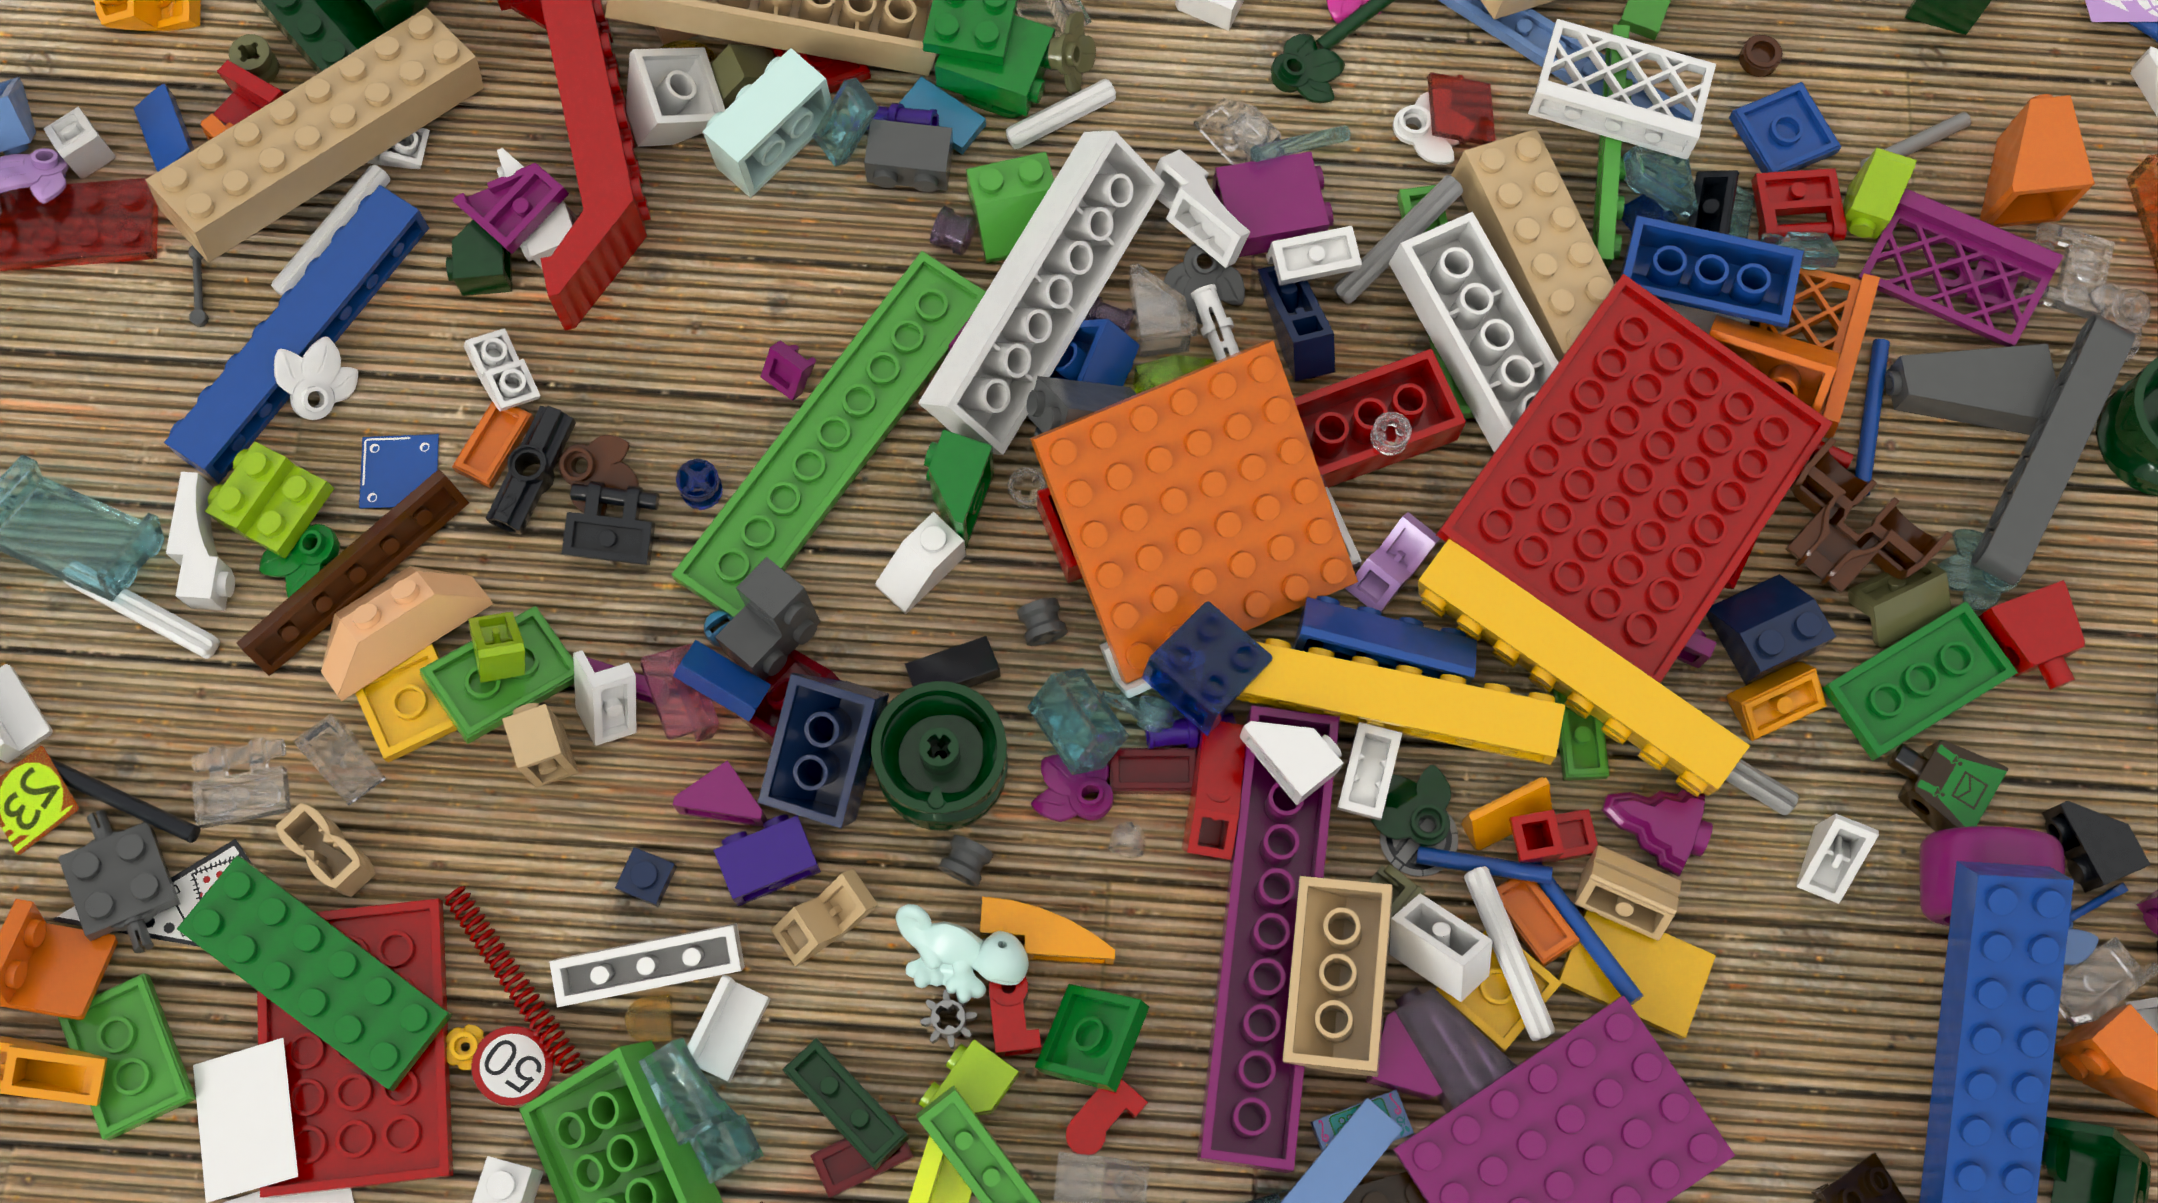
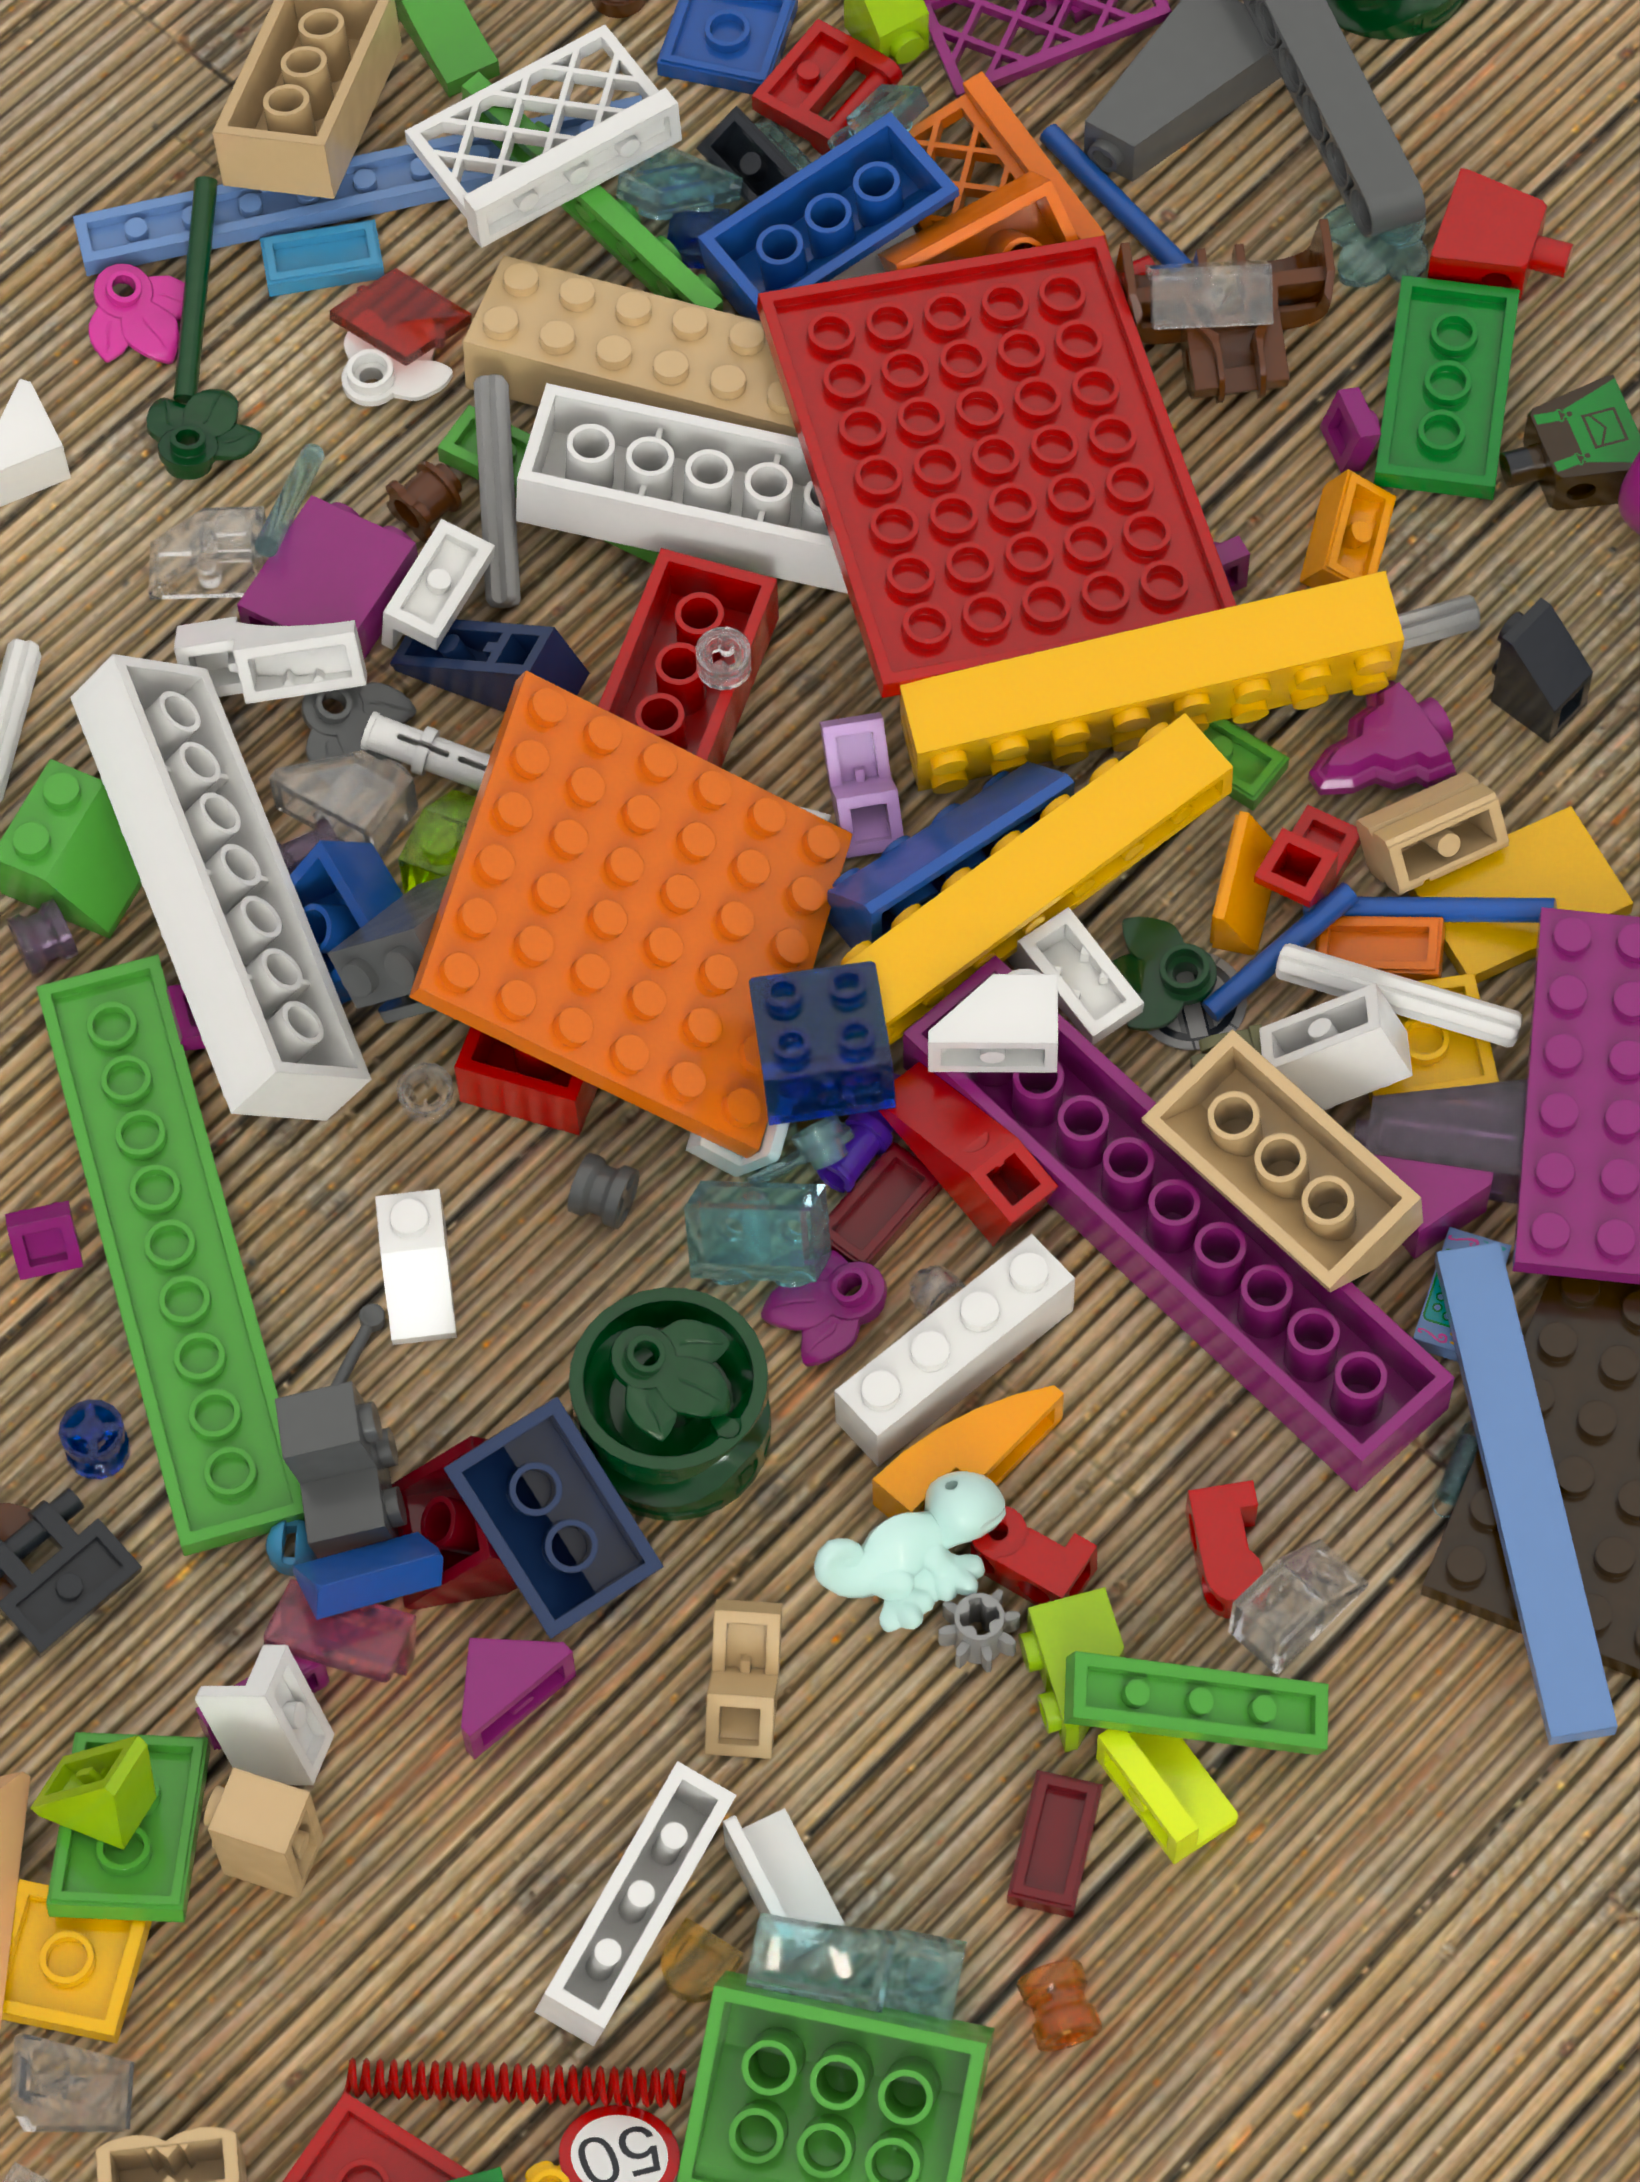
camera: 45 degrees left, 10 degrees down
(646, 877) = (521, 1846): dark blue plate -> none
(766, 859) = (621, 1690): dark purple brick -> none
(811, 582) = (371, 1320): none -> dark grey hinge
(846, 1104) = (981, 1811): dark green tile -> none
(939, 754) = (678, 1382): none -> dark green plate
(959, 479) = (358, 1142): green slope -> none
(963, 664) = (572, 1306): black slope -> none
(966, 860) = (811, 1476): dark grey wheel -> none
(1092, 1037) = (1131, 1485): green plate -> none
(1098, 878) = (954, 1350): none -> white brick
(1366, 207) = (425, 498): none -> reddish brown brick
(1463, 44) = (322, 258): none -> dark azure tile
(1769, 627) = (1266, 477): dark blue slope -> none
(1781, 874) = (1540, 671): none -> black slope
(1835, 856) = (1567, 584): white slope -> none
(1843, 651) = (1350, 429): none -> magenta plate
(1848, 508) = (1210, 294): none -> clear panel
(1902, 605) = (1351, 338): olive panel -> none

